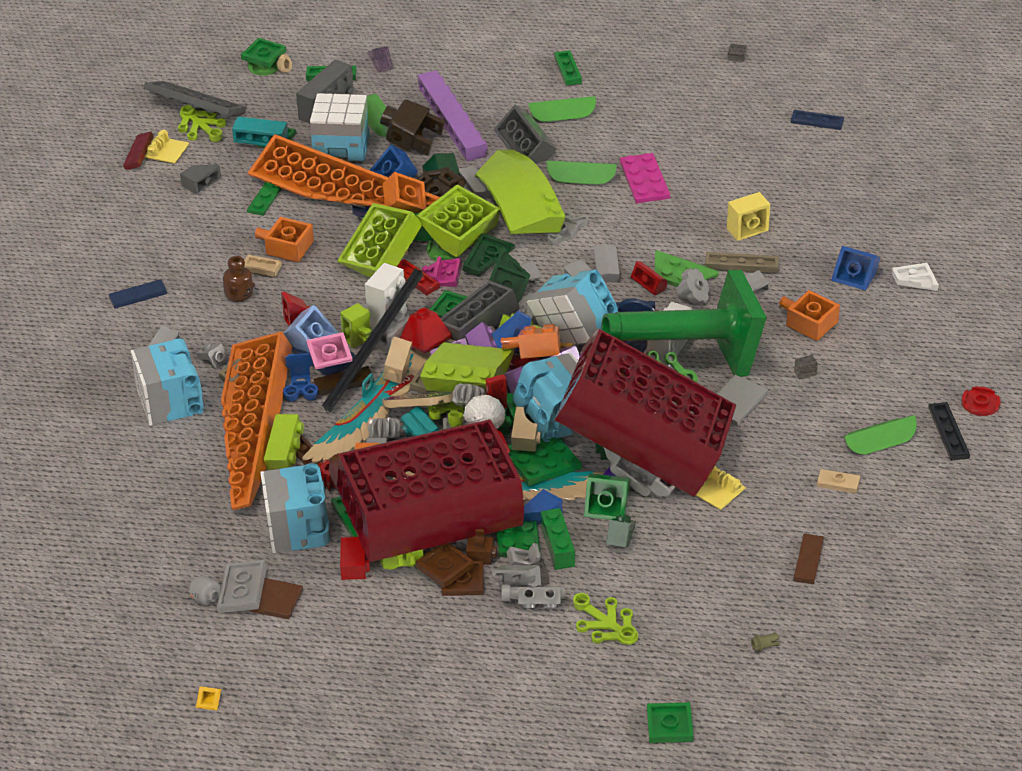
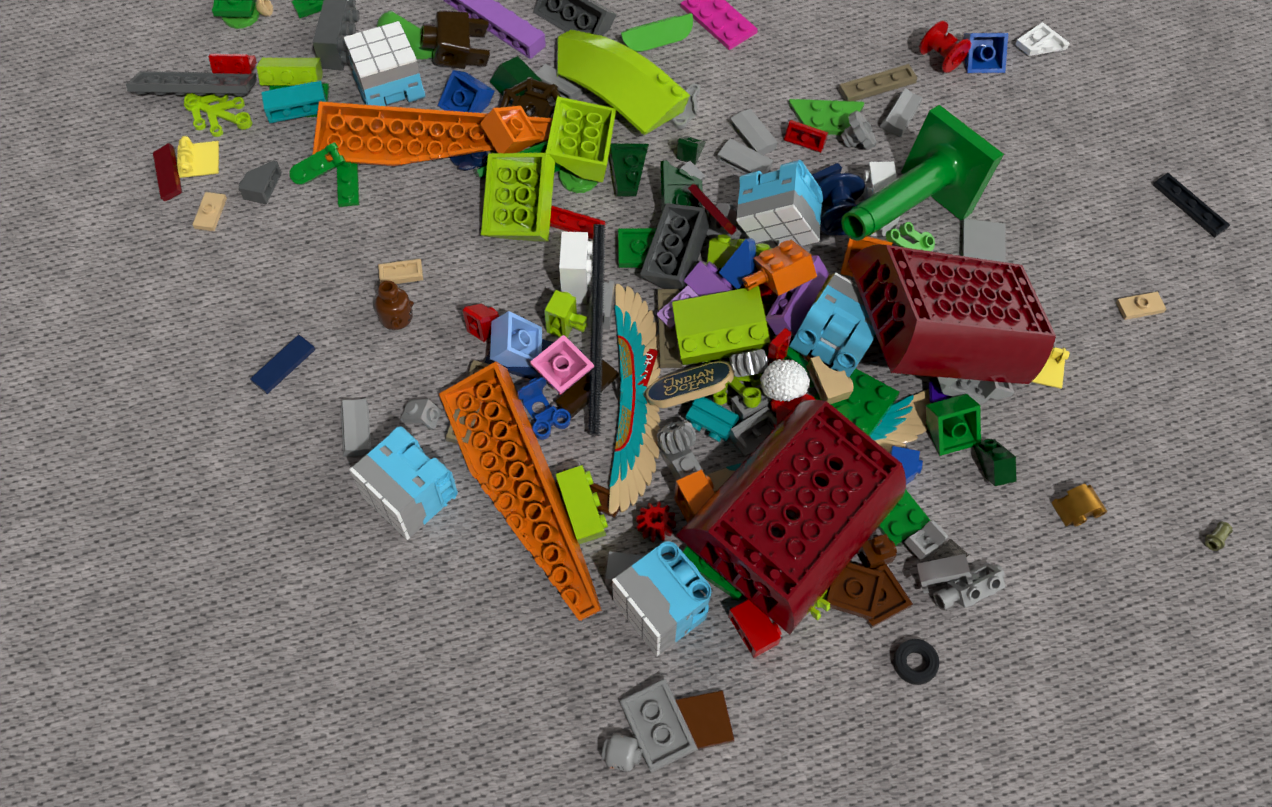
camera: 30 degrees left, 20 degrees up
(151, 185) = (209, 211): none -> tan plate
(232, 94) = (232, 63): none -> red bracket
(247, 178) = (316, 165): none -> green plate
(269, 110) = (289, 71): none -> lime brick
(287, 238) = (410, 229): orange brick -> none
(397, 360) = (638, 344): tan slope -> none
(425, 330) = (636, 292): red slope -> none
(445, 271) = (599, 204): dark pink slope -> none
(457, 614) = (923, 648): none -> black tyre
(519, 292) = (714, 211): none -> dark red tile
(544, 257) = (689, 149): none -> dark green slope
(557, 539) = (944, 501): green brick -> none
(581, 602) = (1057, 582): lime plant -> none
(668, 579) = (1079, 504): none -> pearl gold cylinder
(669, 722) = (1208, 688): green plate -> none
(748, 216) = (855, 29): light yellow brick -> none
(805, 367) = (1022, 184): clear smoke piece -> none
(808, 558) = (1181, 412): reddish brown tile -> none
(811, 314) = (990, 119): orange brick -> none
(815, 247) = (945, 45): none -> red hose
(881, 435) = (1142, 235): bright green brick -> none
(980, 401) = (1192, 159): red tile -> none

